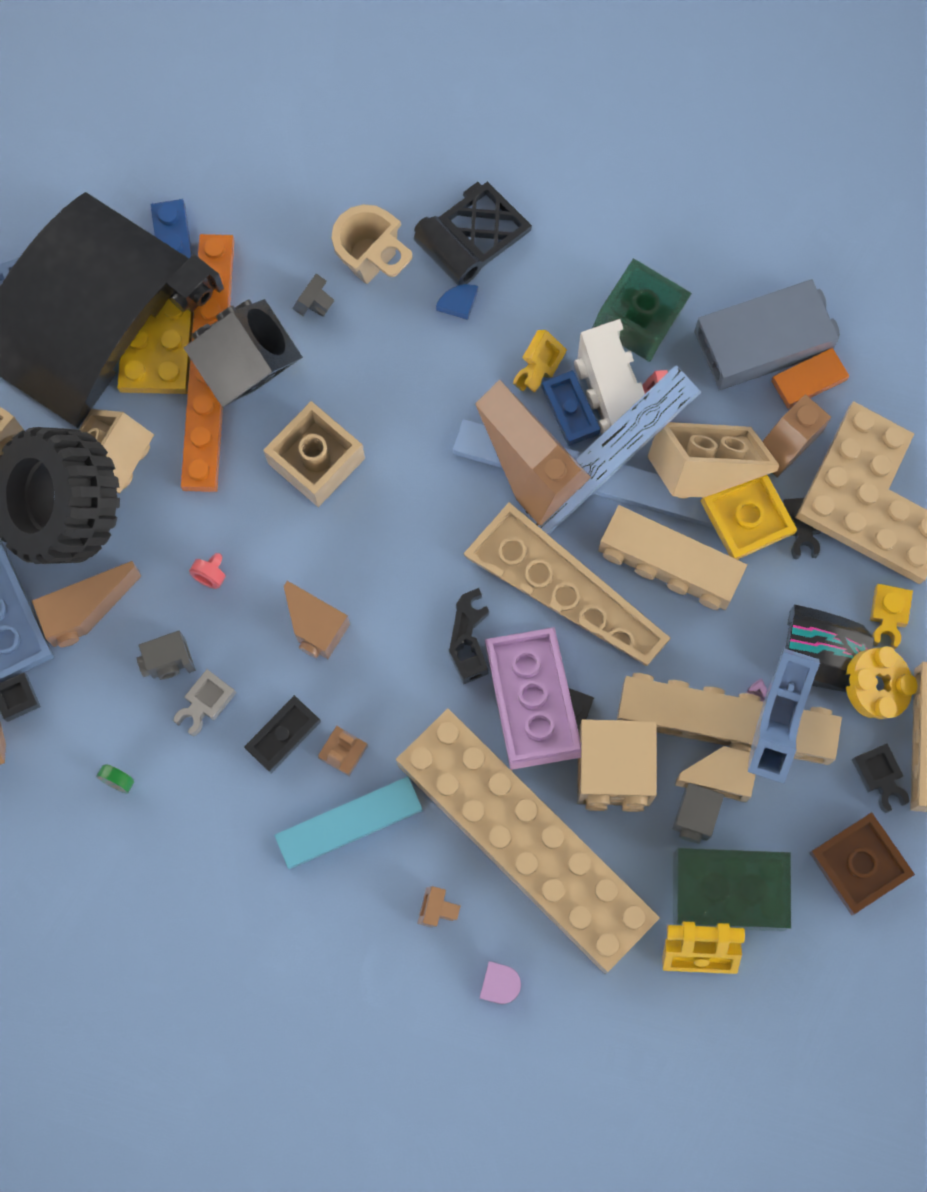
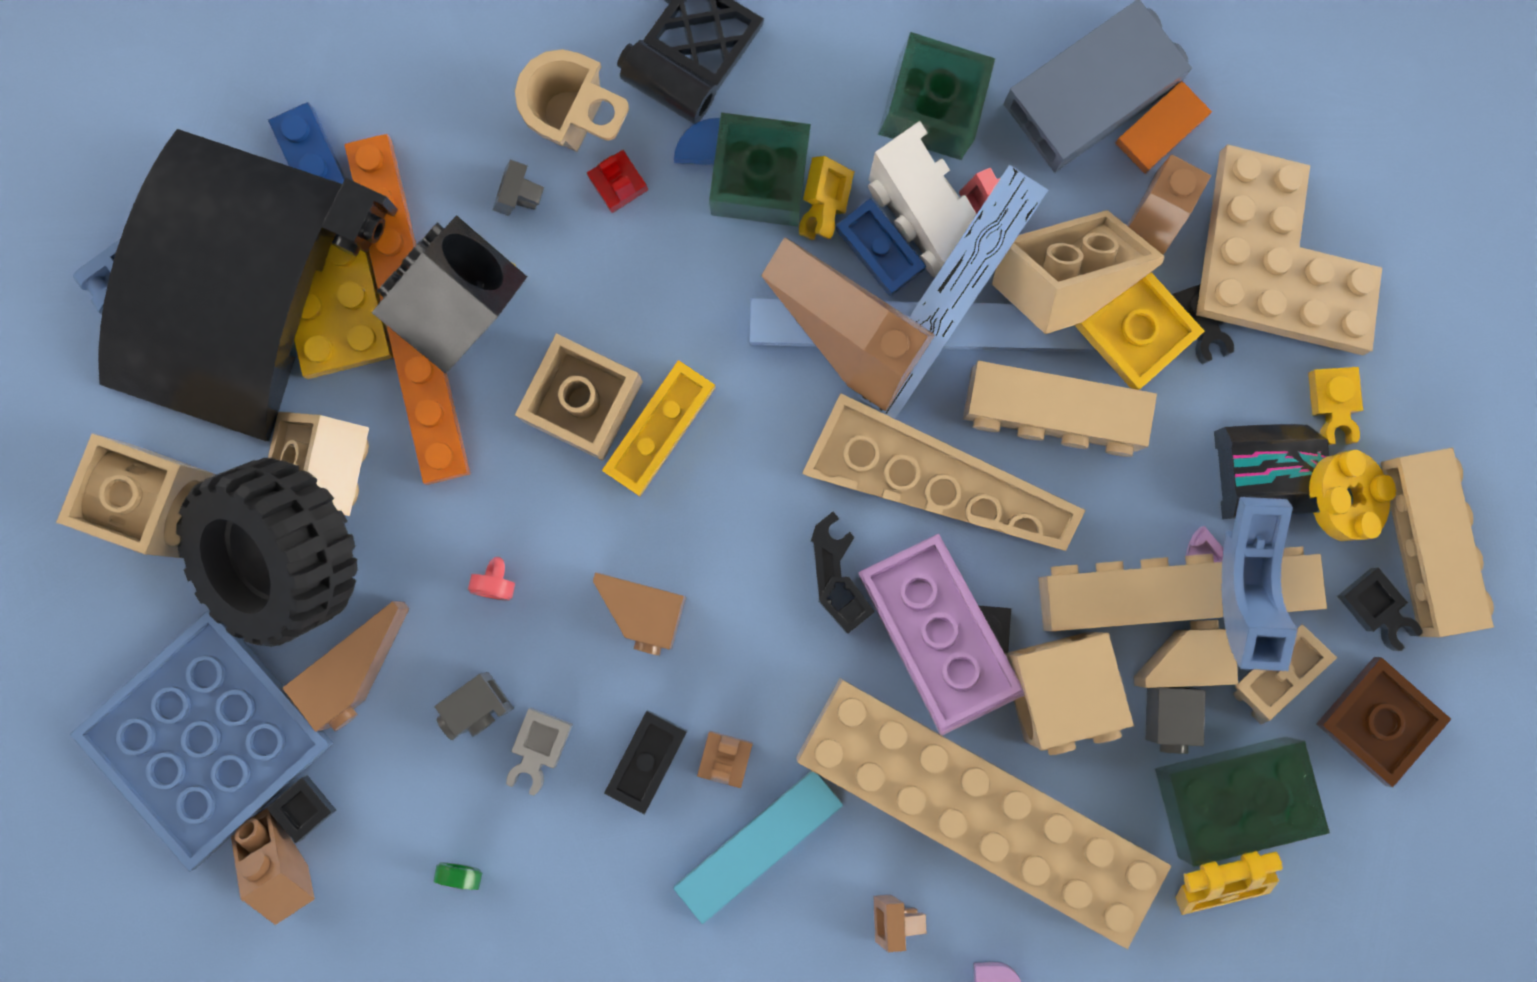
camera: 20 degrees left, 10 degrees up
(366, 494) = (659, 428): none -> yellow plate
(389, 311) = (617, 181): none -> red tile
(495, 328) = (759, 169): none -> clear green brick
(791, 803) = (1272, 690): none -> tan hinge

